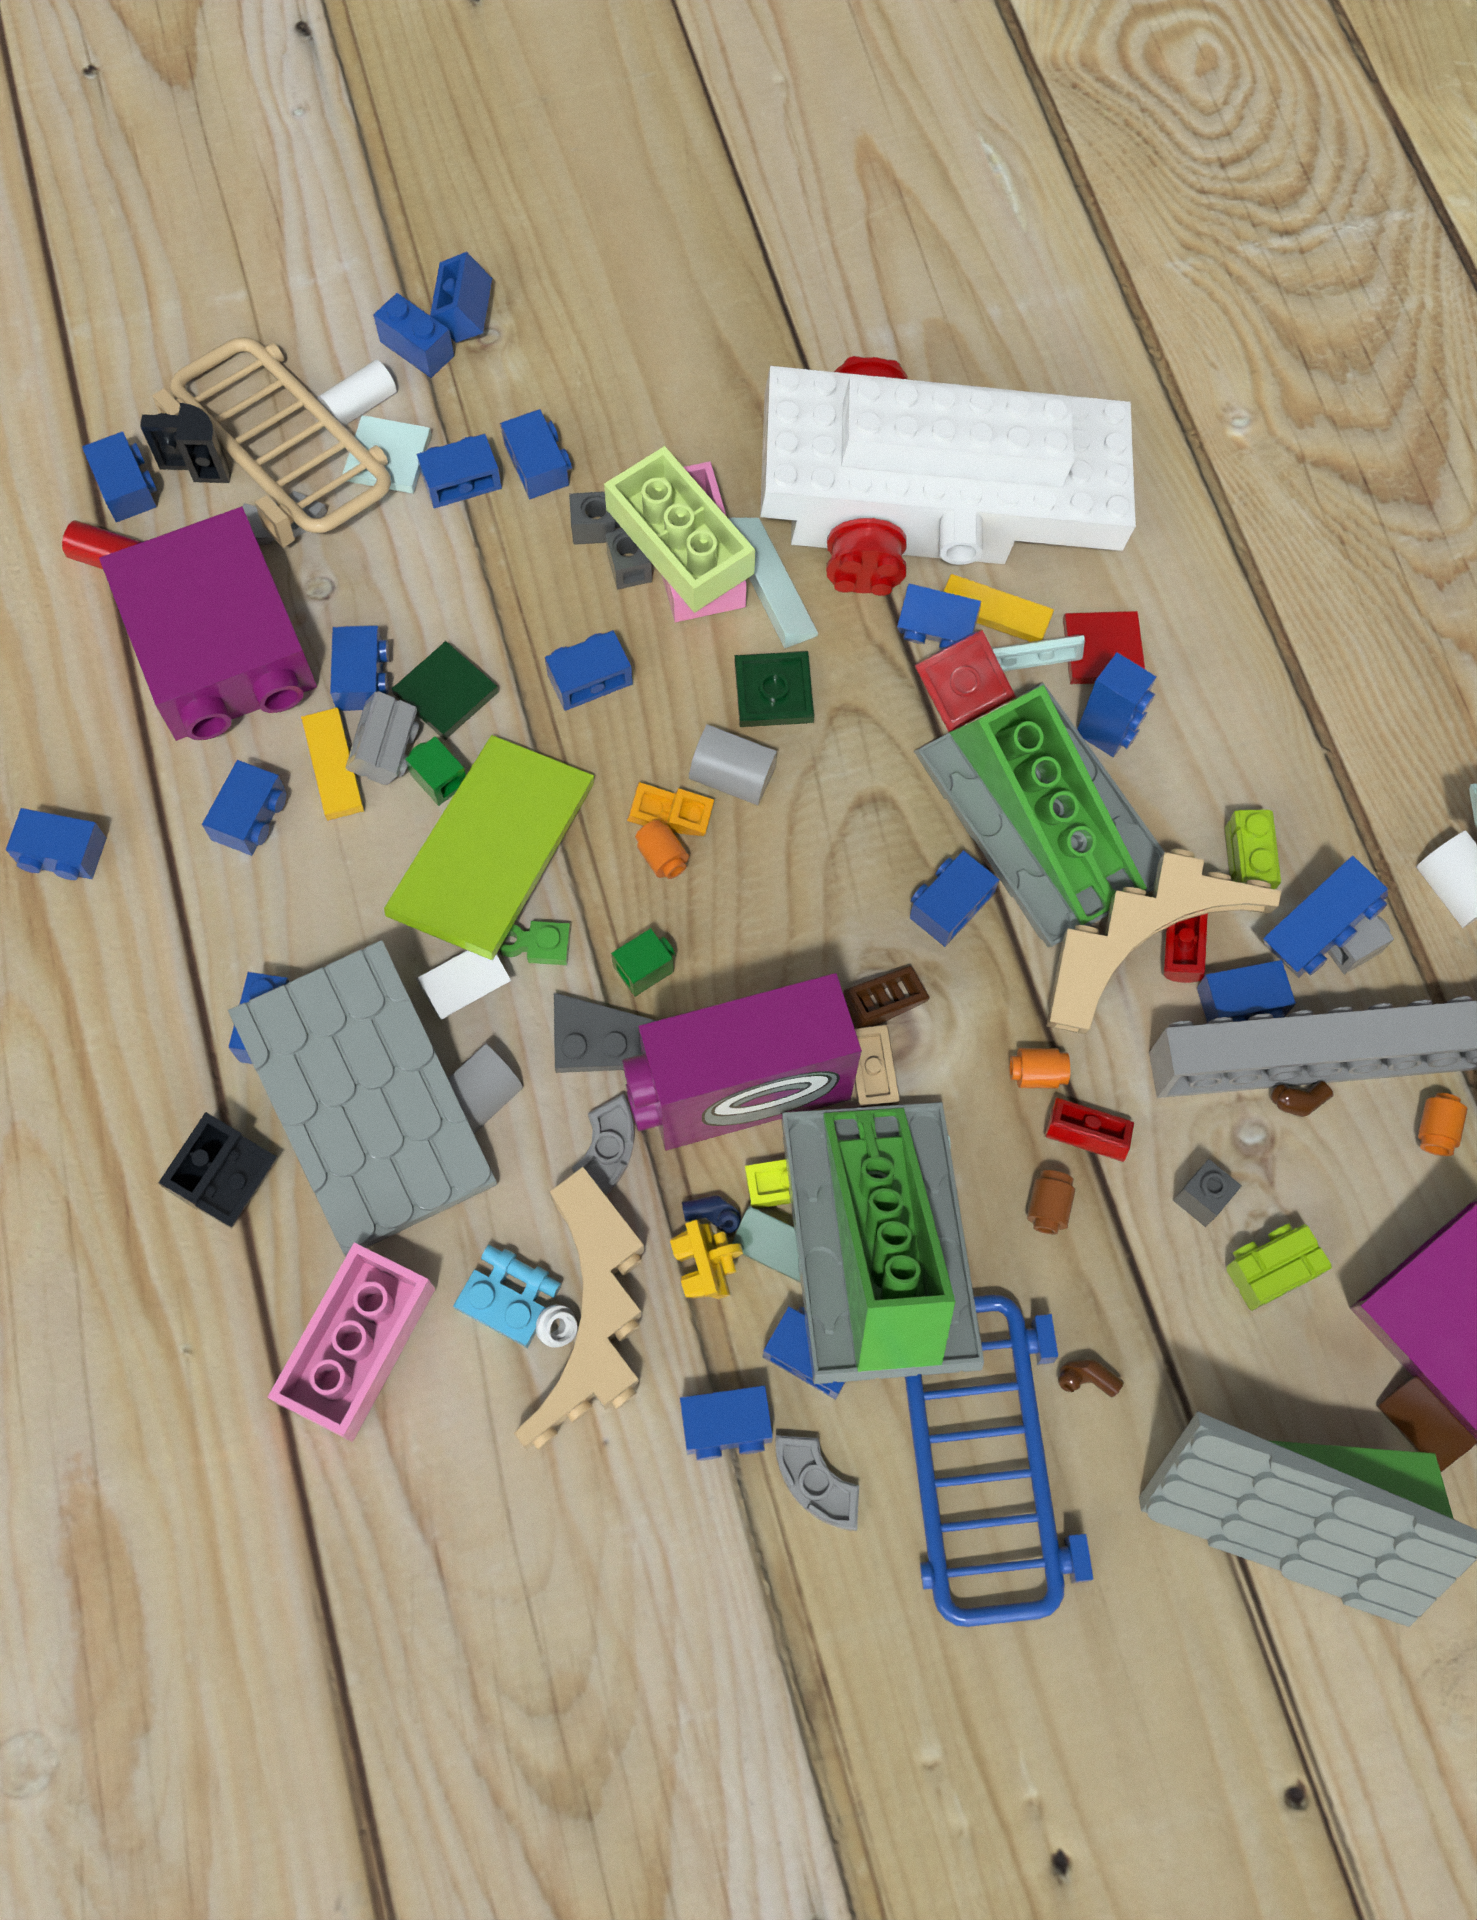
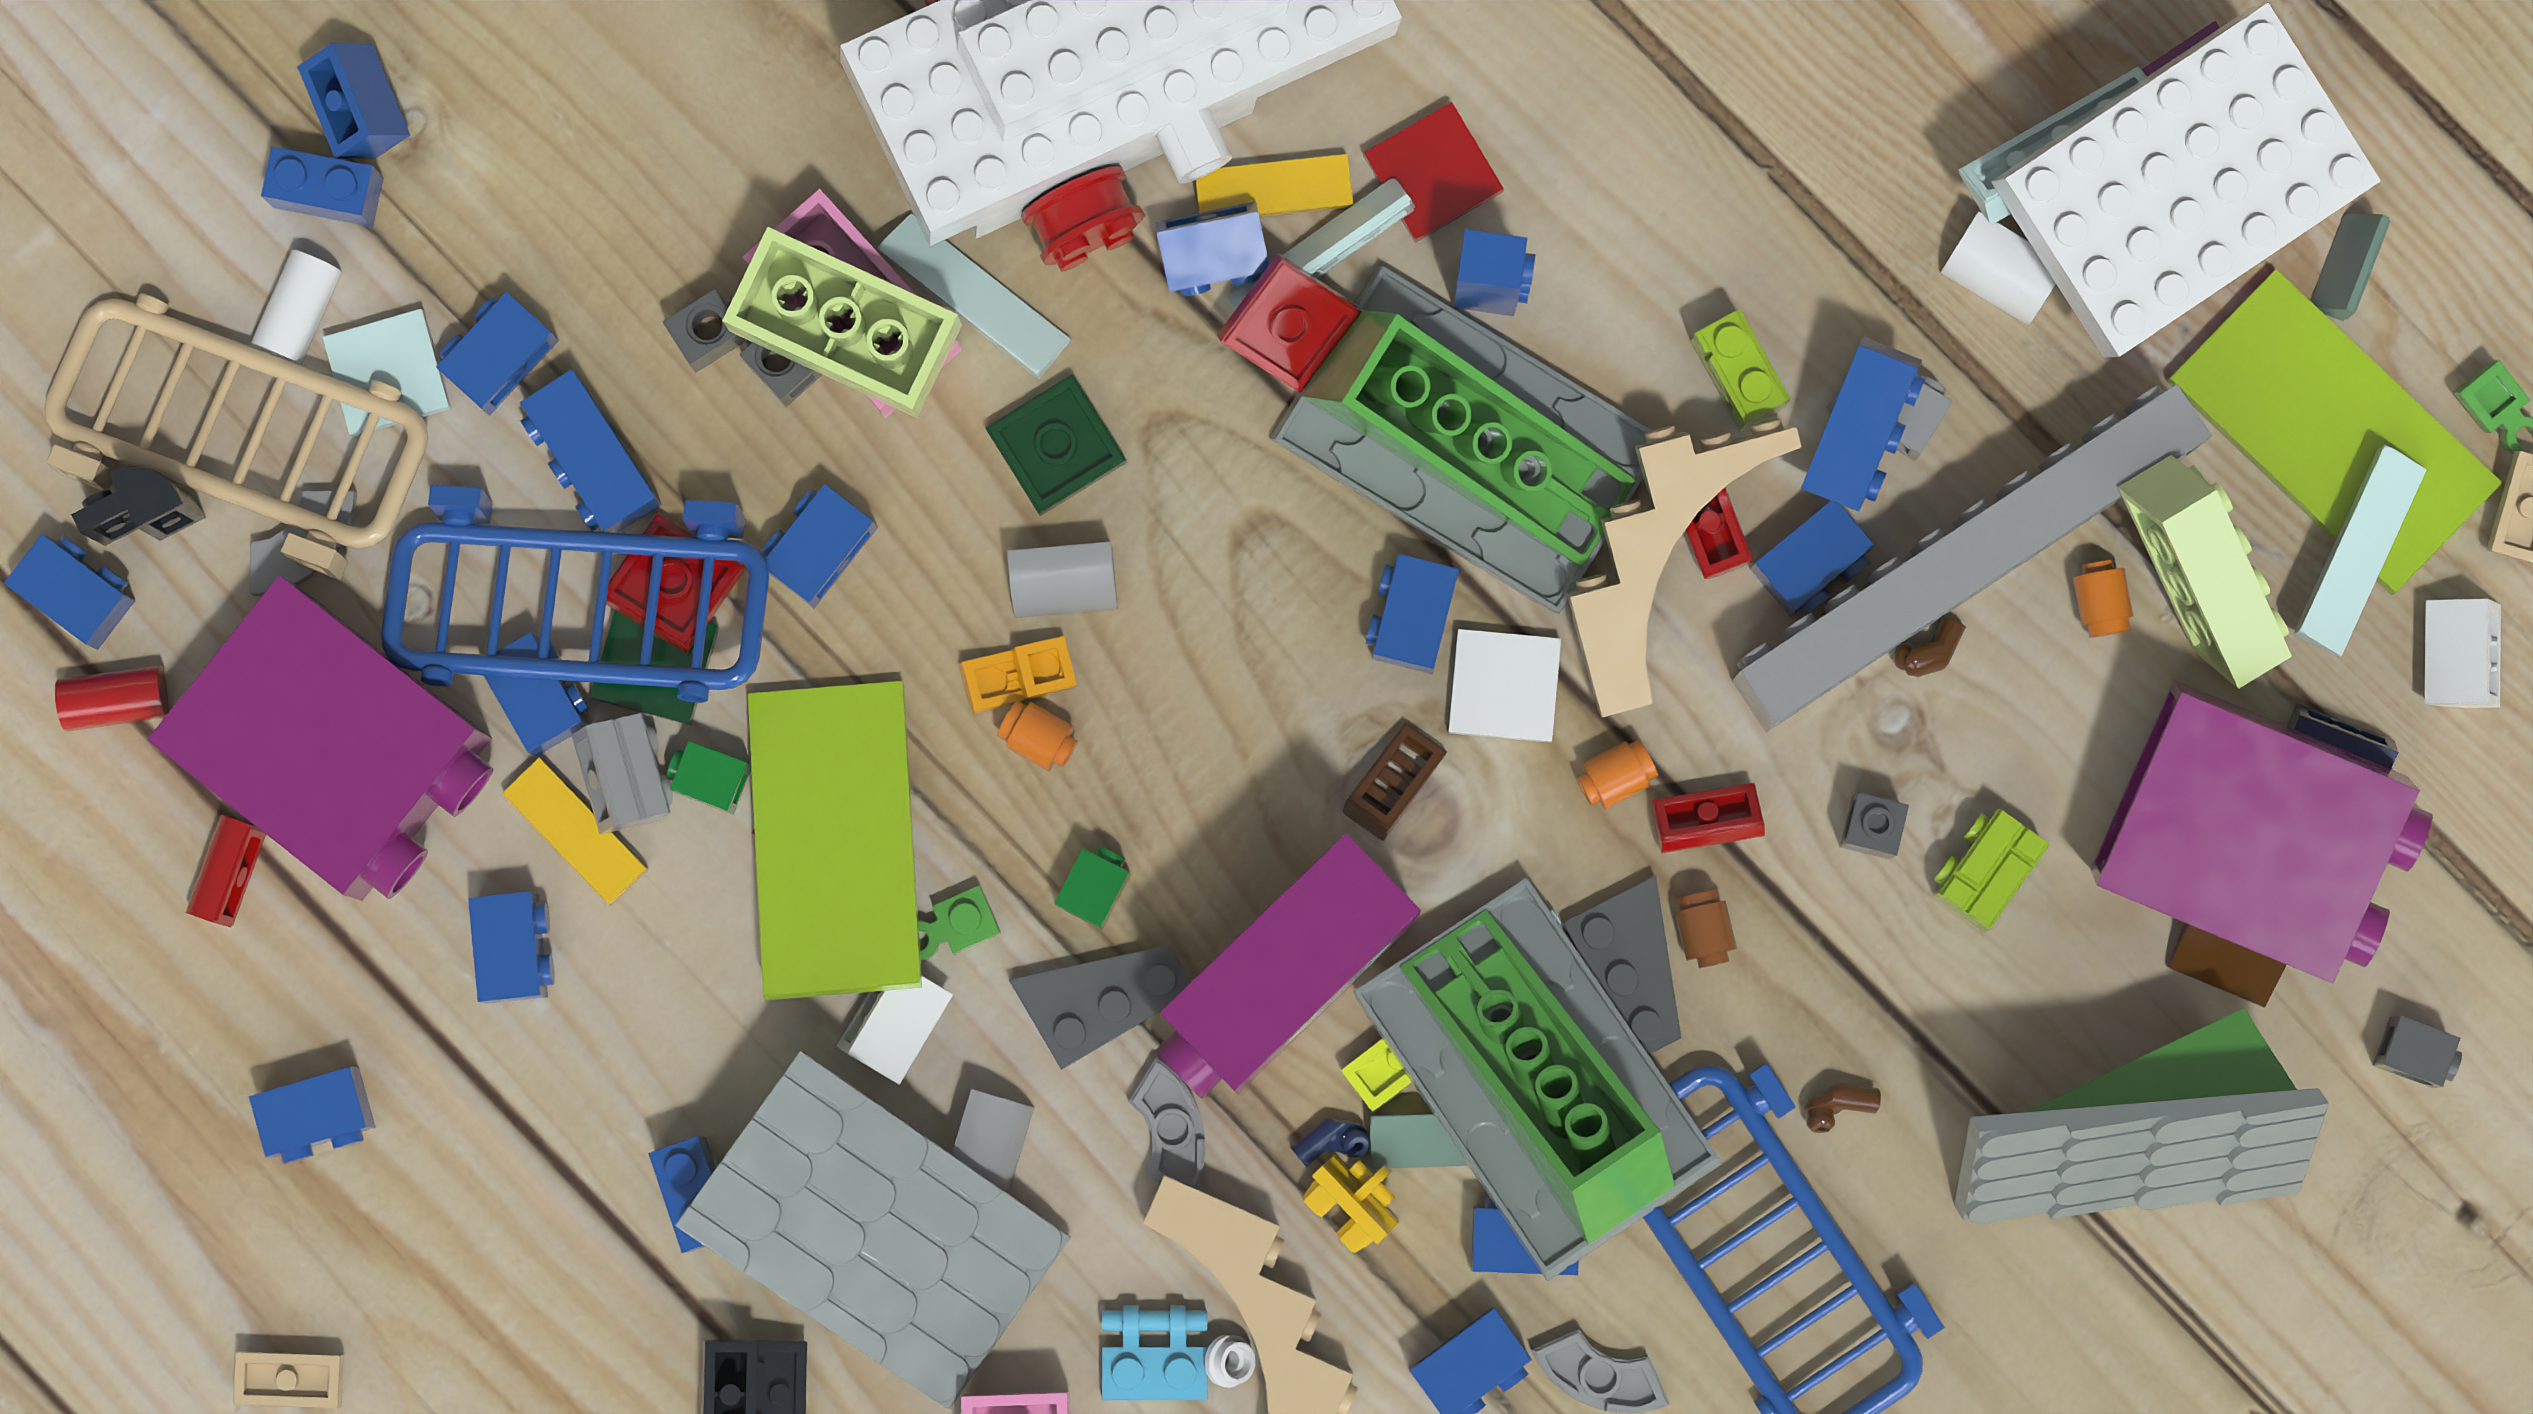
camera: 20 degrees left, 15 degrees up
(103, 677) = (226, 871): none -> red brick
(384, 548) = (464, 506): none -> blue bar
(478, 551) = (588, 454): none -> blue brick
(483, 647) = (678, 588): none -> red tile
(536, 454) = (581, 277): blue brick -> none
(875, 1075) = (1425, 873): tan plate -> none
(987, 1197) = (1630, 959): none -> dark grey wing
(990, 976) = (1504, 685): none -> white tile

